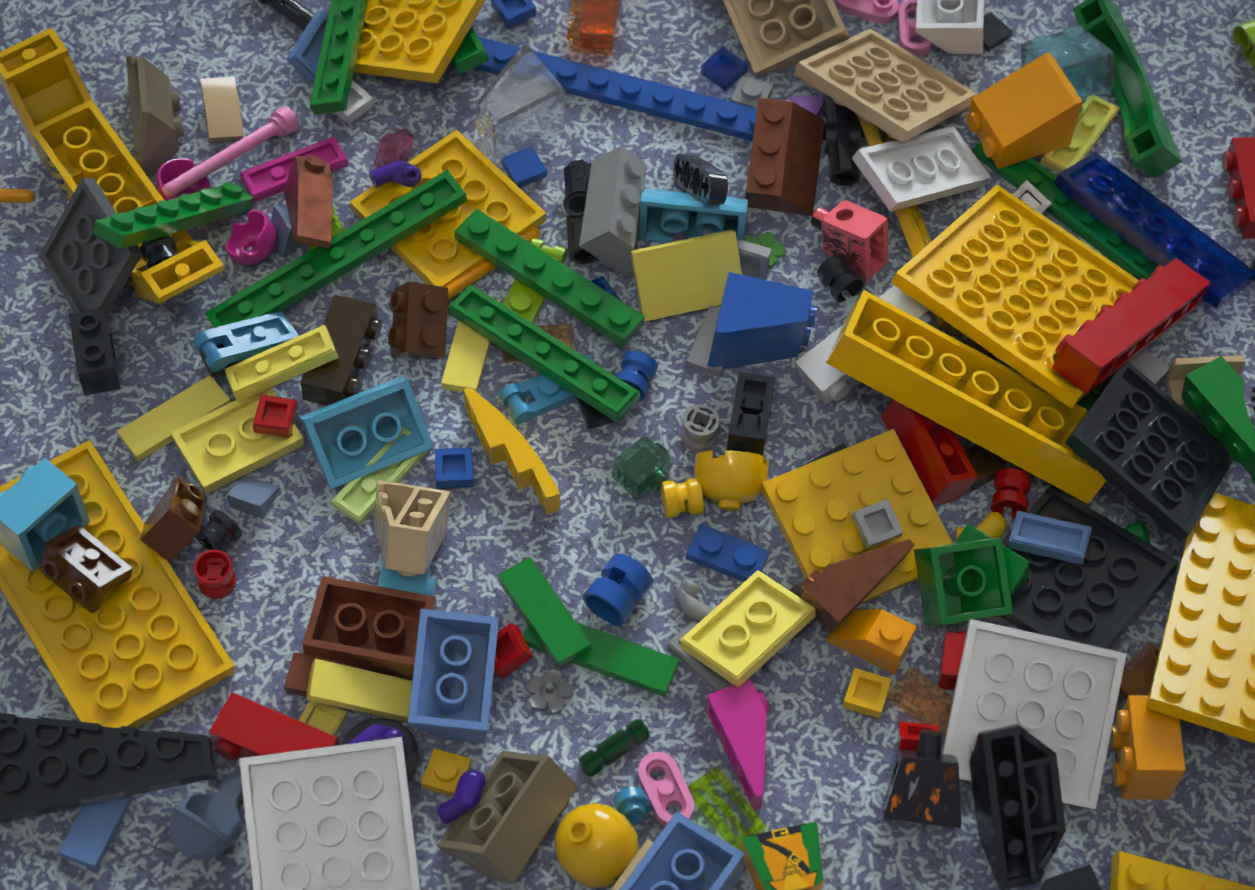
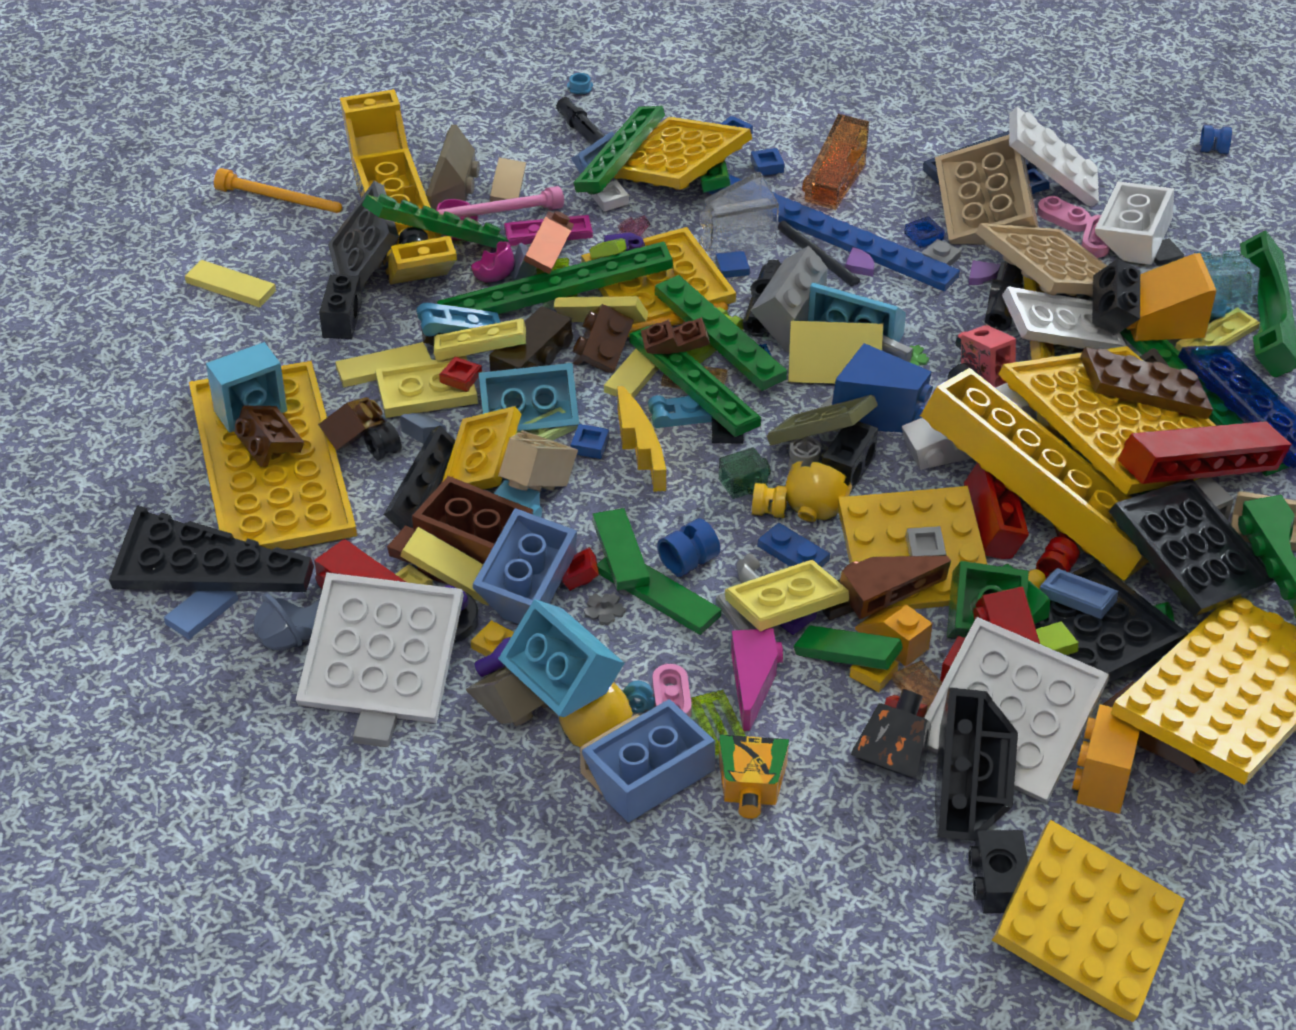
camera: 20 degrees right, 15 degrees down
(211, 566) = (368, 466): red wheel -> none
(285, 576) = (422, 478): none -> black plate
(340, 522) = (482, 447): none -> yellow plate
(383, 192) = (608, 248): none -> lime tile
(387, 282) = (579, 307): none -> light yellow tile
(500, 307) = (664, 339): none -> copper slope
(550, 808) = (559, 659): none -> medium azure slope
(614, 747) = (647, 655): dark green axle -> none
(618, 128) = (832, 264): none -> black bar
(637, 371) = (769, 408): blue wheel -> none
(666, 129) = (860, 262): none -> medium lavender tile
(700, 178) = (870, 284): black beam -> none
(710, 380) = (822, 420): none -> olive tile
(784, 157) = (948, 293): copper slope -> none
(834, 676) = (848, 647): none -> green tile
(972, 126) = (1116, 296): none -> black brick
(984, 464) = (1039, 536): dark brown plate -> none
(998, 601) = (1009, 611): none -> red slope
(1037, 238) = (1146, 382): none -> reddish brown plate
(1047, 611) = (1058, 638): none -> lime tile

